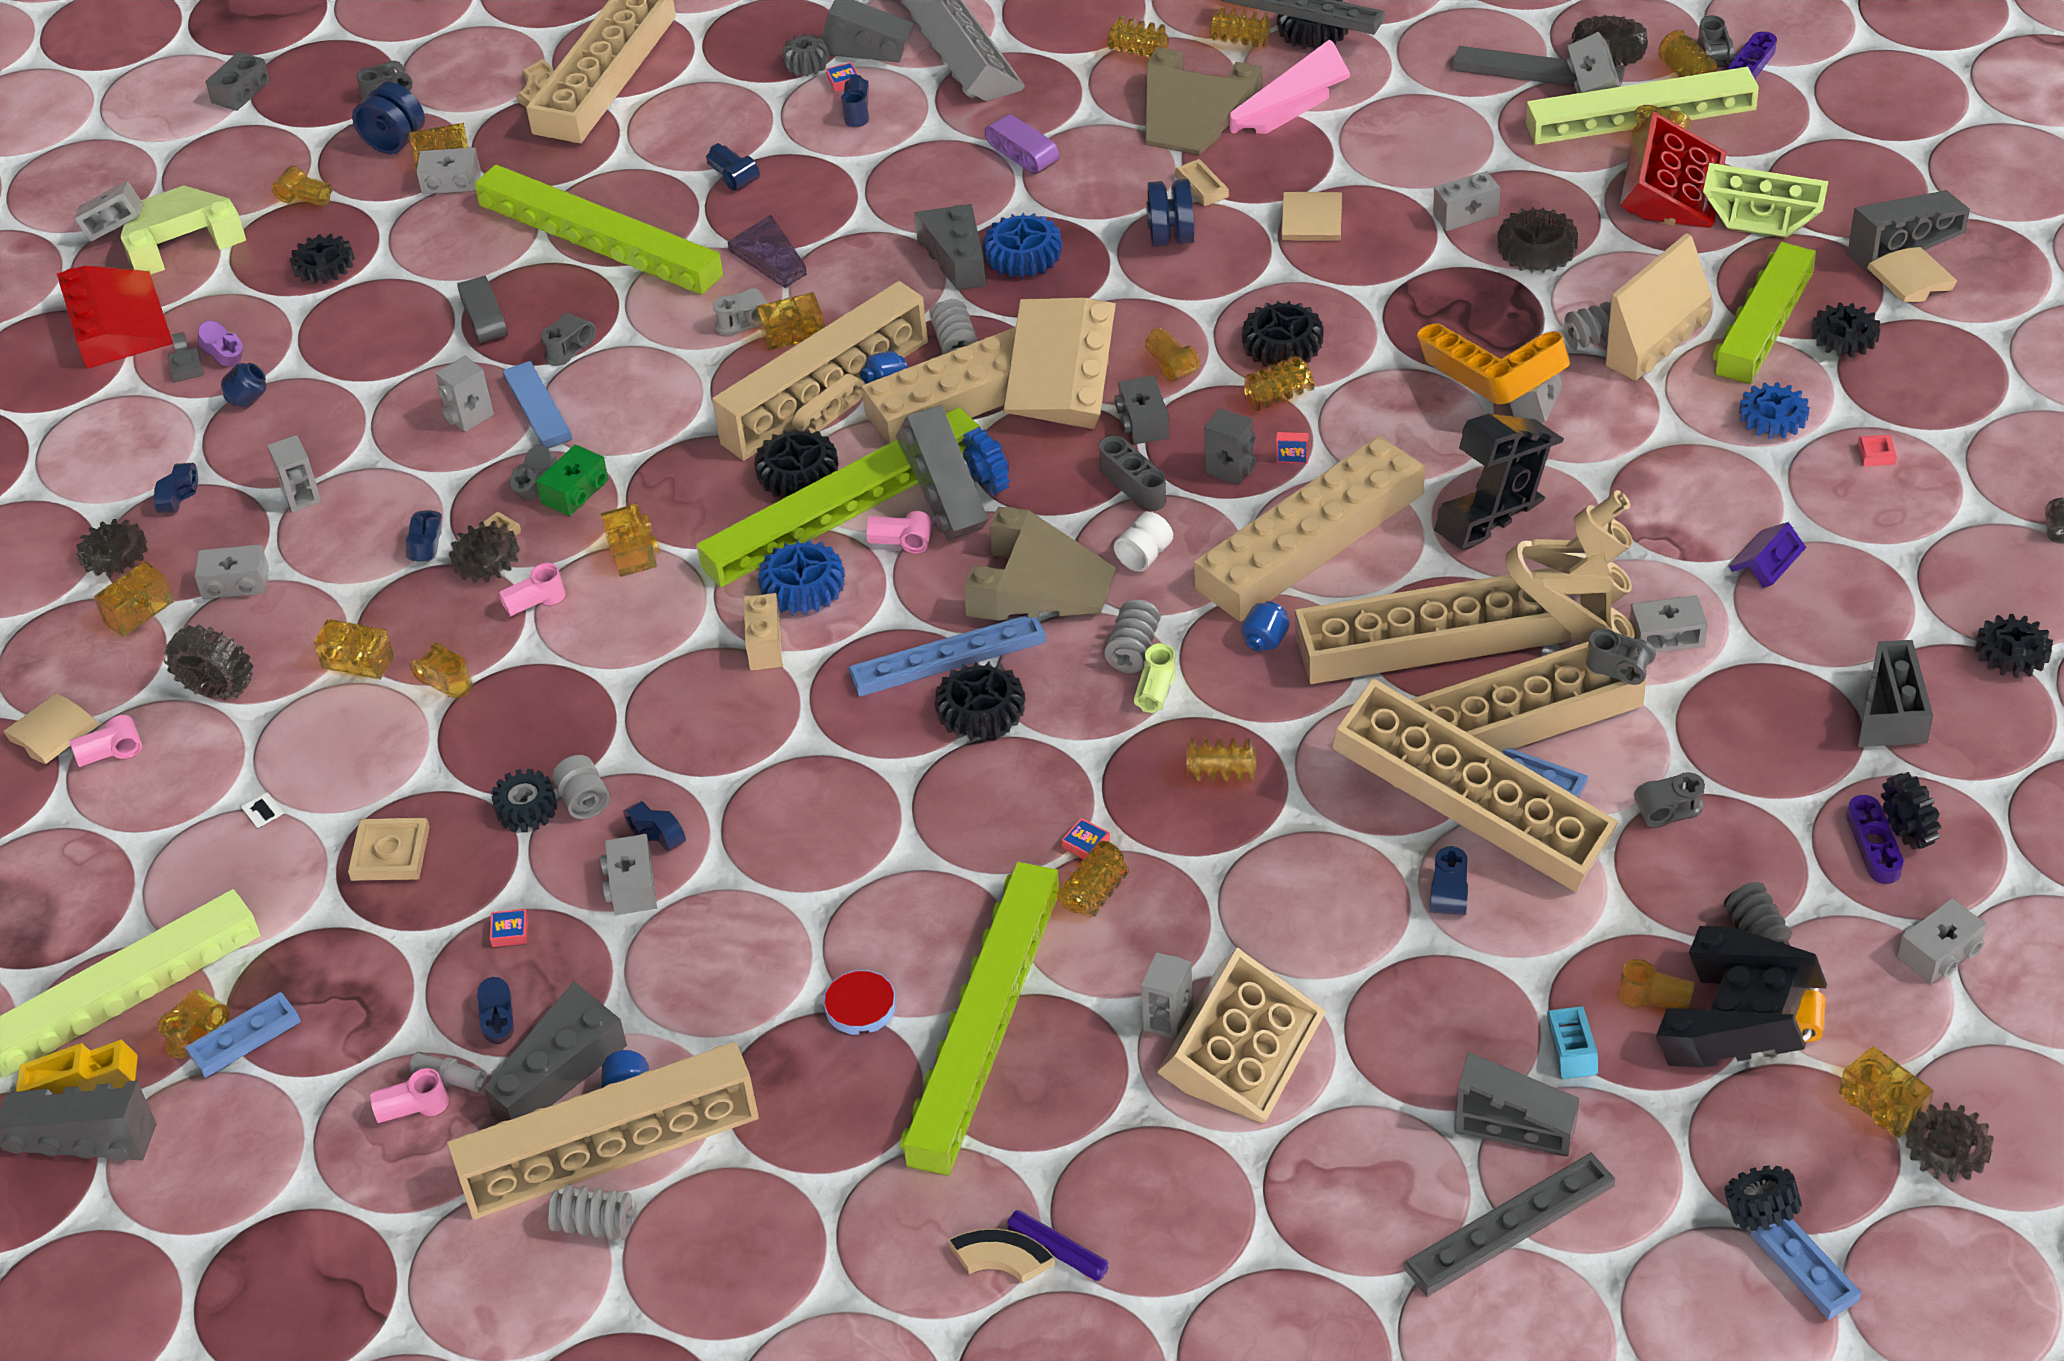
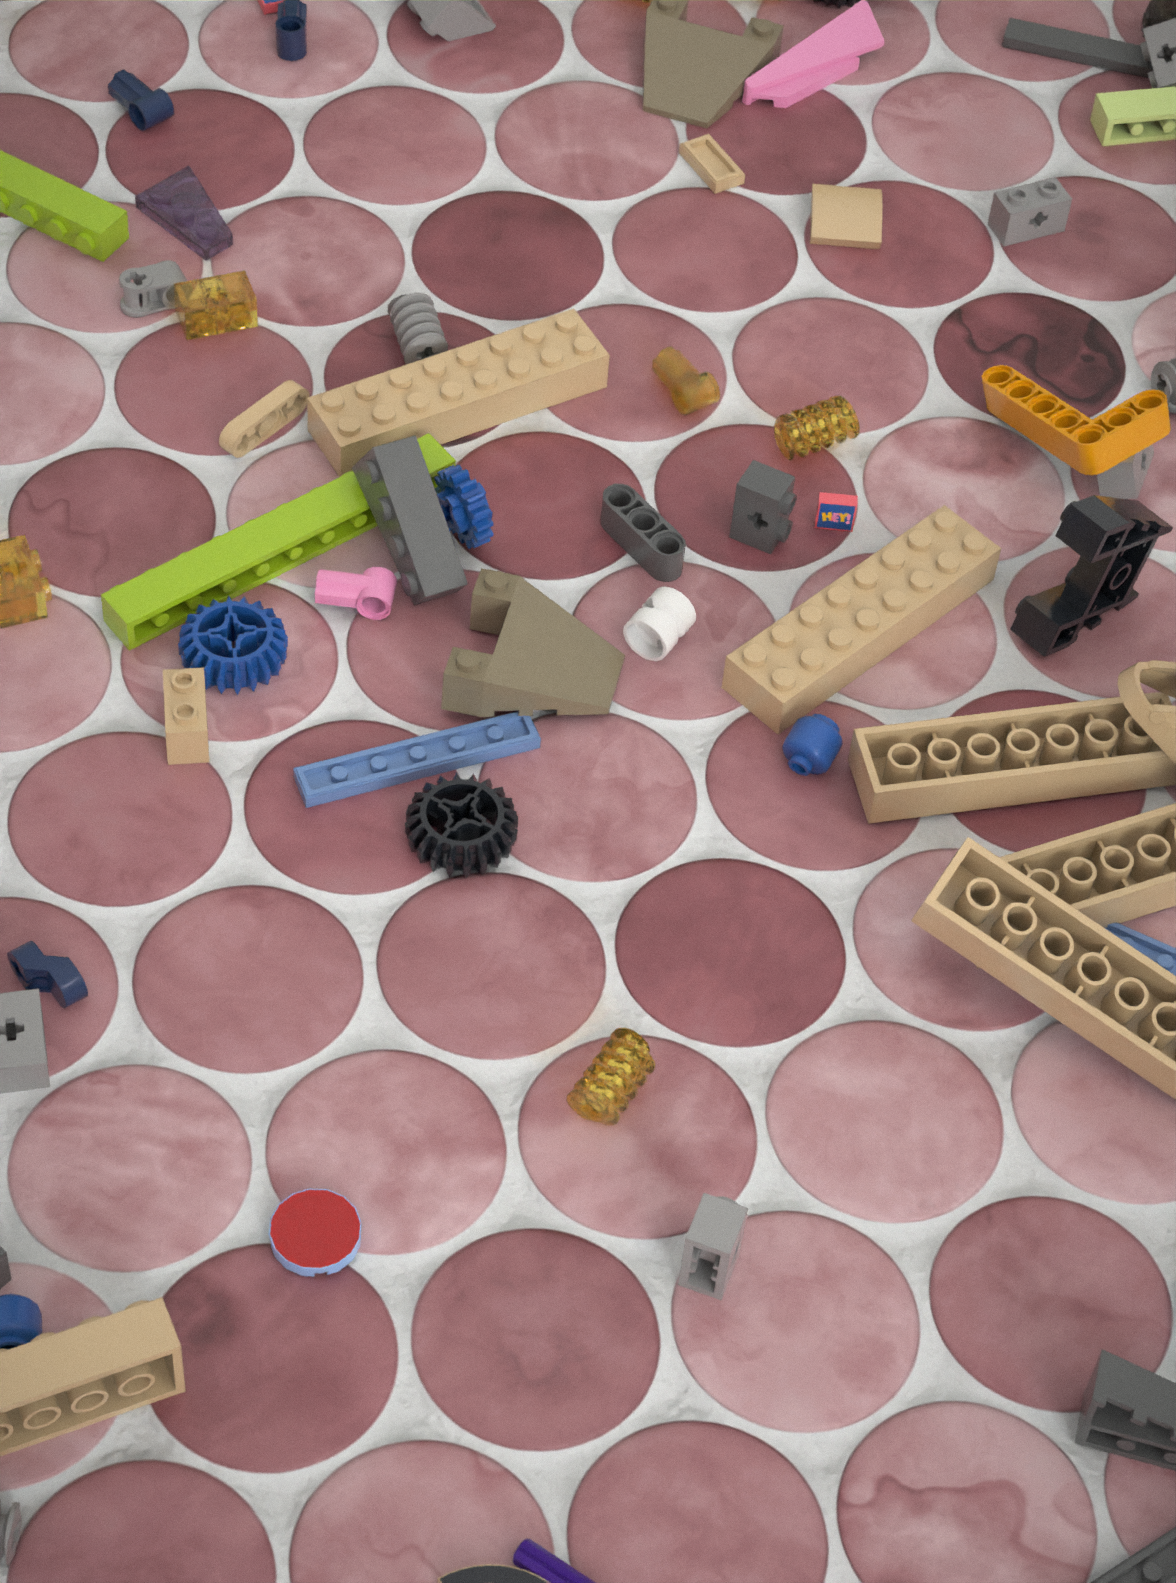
camera: 10 degrees left, 5 degrees up
(774, 393) = (298, 343): tan brick -> none
(794, 461) = (223, 491): black gear -> none
(882, 365) = (330, 373): blue head -> none
(954, 243) = (417, 219): dark grey wedge -> none
(981, 1019) = (472, 1269): lime brick -> none
(1022, 143) = (495, 98): medium lavender beam -> none
(1022, 245) = (499, 228): blue gear -> none
(1060, 360) = (554, 382): tan slope -> none
(1083, 838) = (597, 1019): tile -> none
(1132, 636) = (649, 749): light grey piece -> none
(1142, 410) = (652, 450): dark grey brick -> none
(1156, 678) = (680, 806): yellowish green piece -> none
(1168, 213) = (680, 200): dark blue wheel -> none
(1221, 759) = (766, 919): clear yellow piece -> none
(1242, 1039) = (805, 1306): tan slope -> none
(1282, 332) = (817, 363): black gear -> none
(1449, 882) = (1054, 1102): dark blue piece -> none
(1537, 240) = (1115, 266): clear smoke gear -> none

